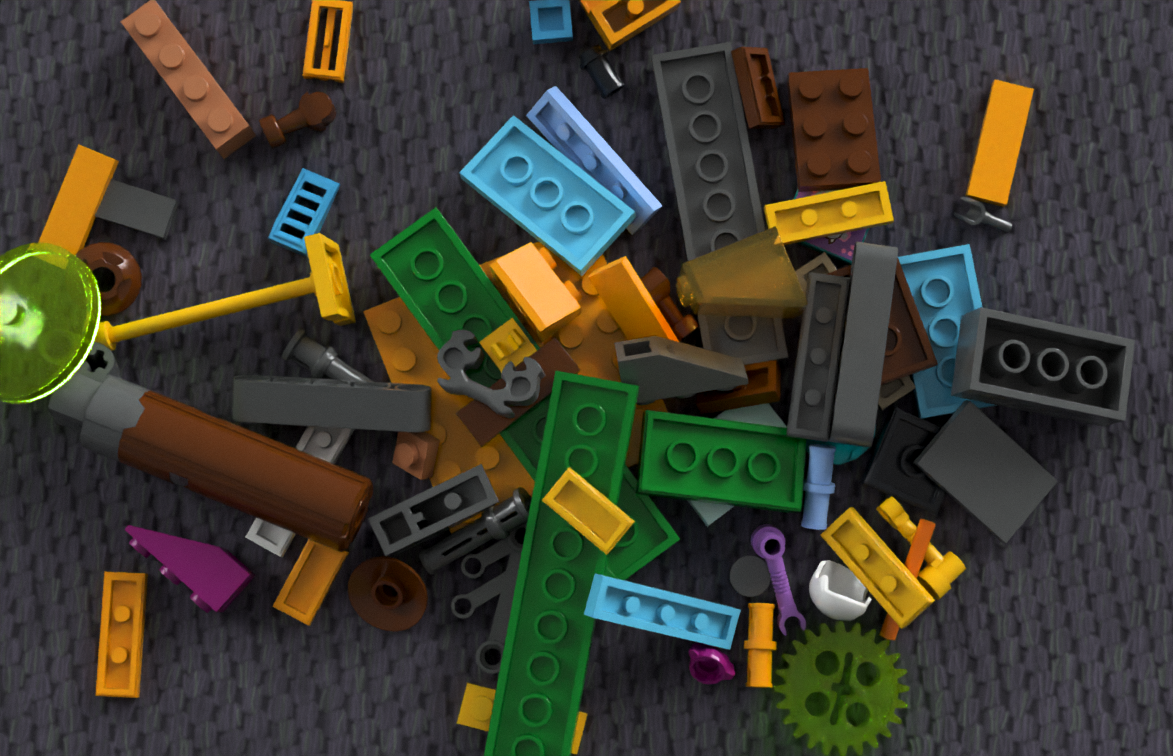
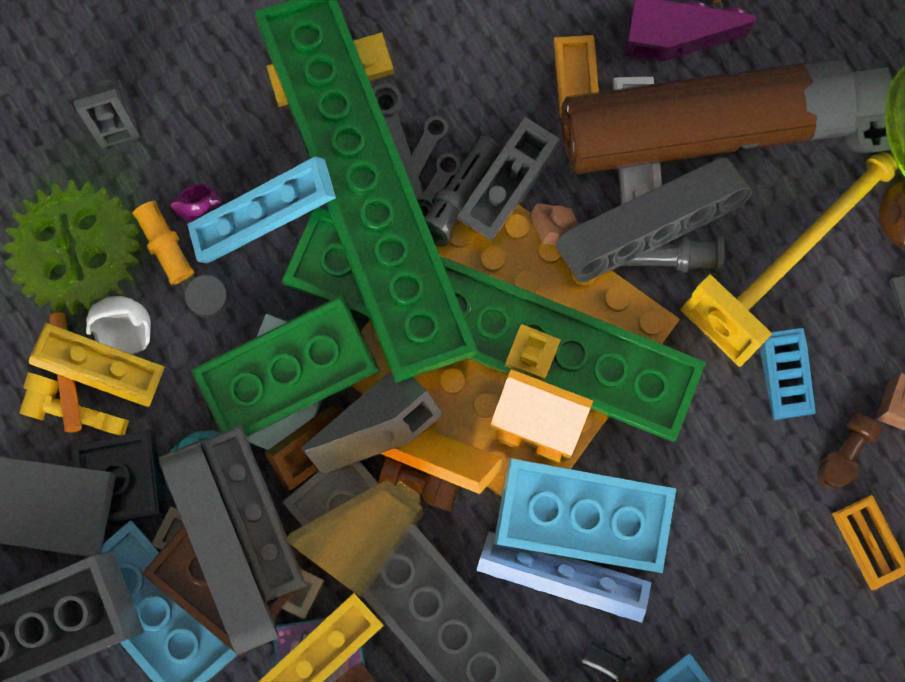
camera: 145 degrees right, 5 degrees down
(378, 602) = (504, 97): reddish brown dish -> none
(486, 424) = (500, 318): reddish brown tile -> none
(521, 386) = (498, 317): dark grey helmet -> none
(588, 511) = (373, 247): yellow tile -> none
(777, 572) = (206, 340): medium lavender brick -> none
(818, 486) = (188, 402): light blue pin -> none

